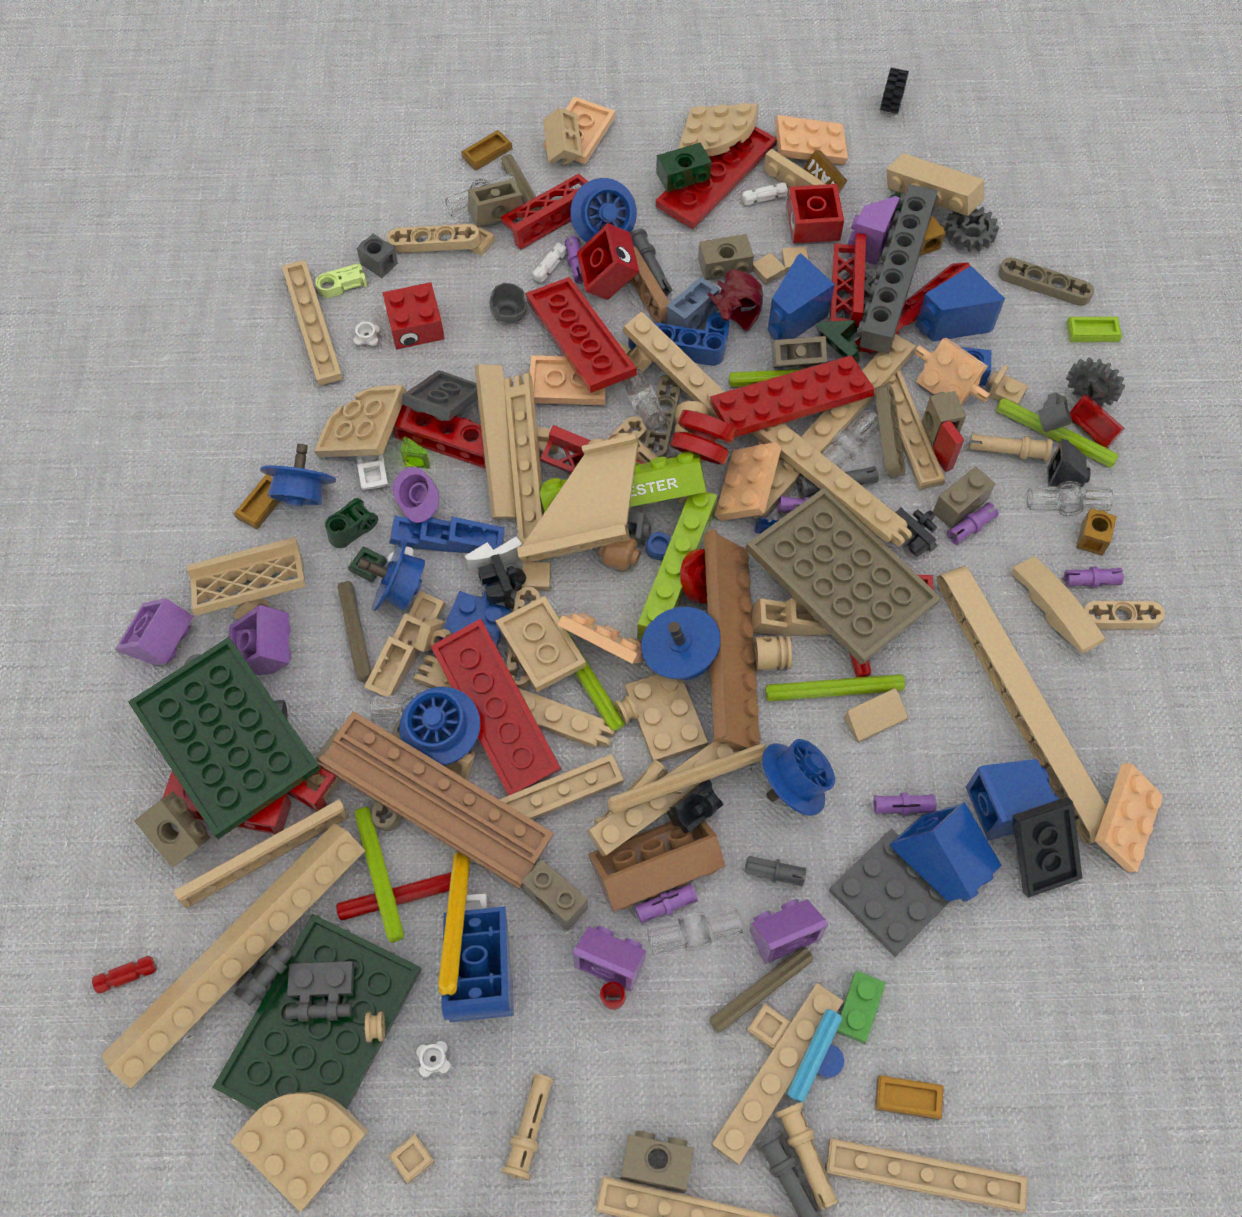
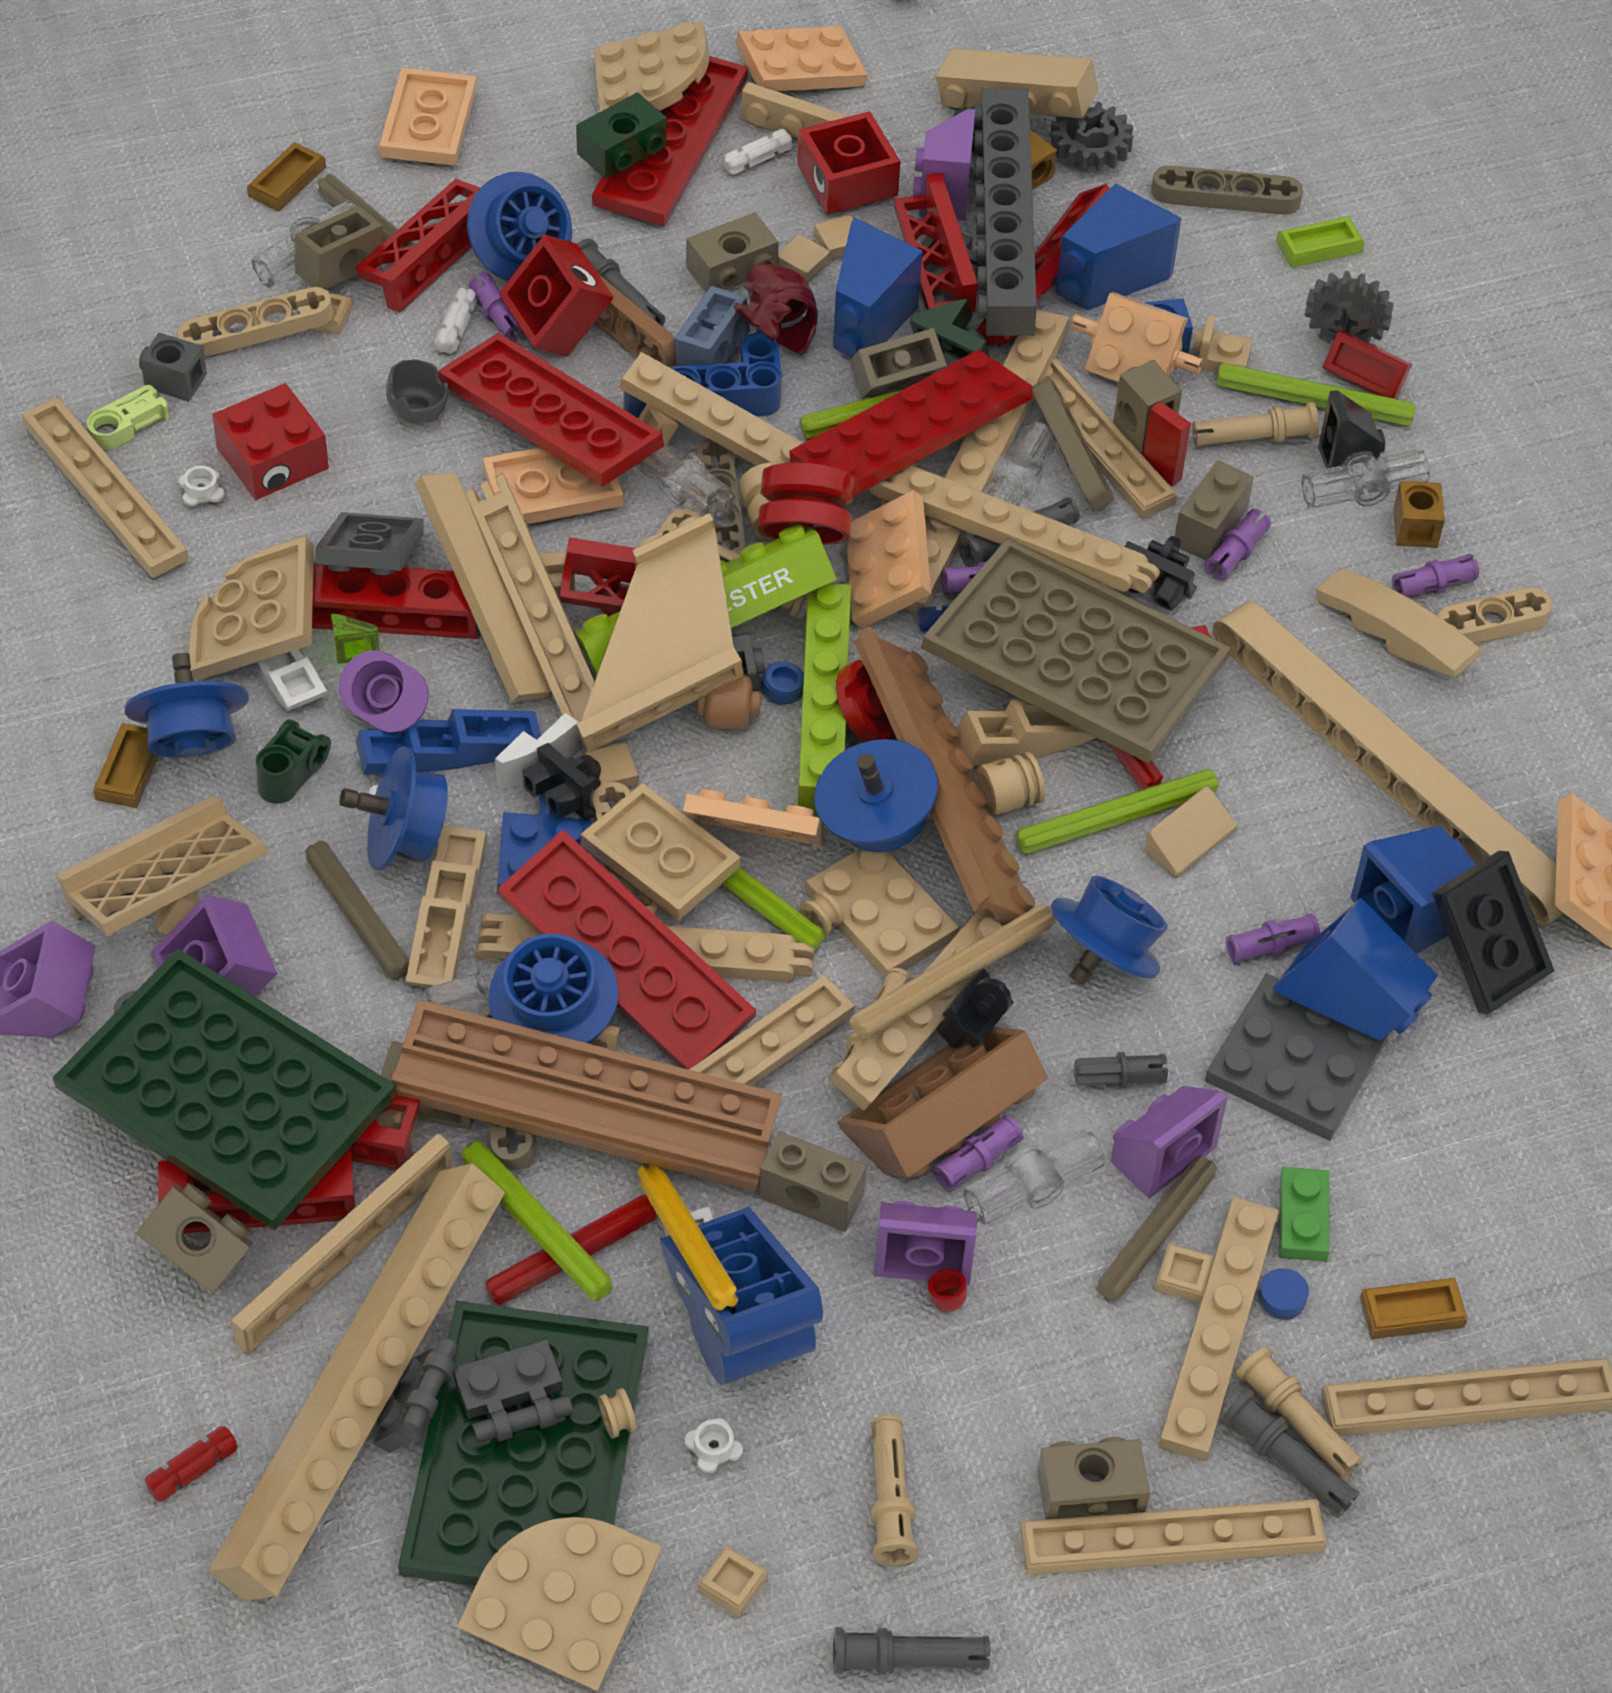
camera: 20 degrees left, 10 degrees down
(370, 555) = (335, 819): dark green tile -> none
(430, 633) = (484, 879): tan tile -> none
(562, 136) = (409, 129): tan hinge -> none
(814, 1055) = (1264, 1283): medium azure axle -> none
(824, 170) = (838, 96): pearl gold tile -> none
(1055, 412) = (1305, 364): dark grey piece -> none

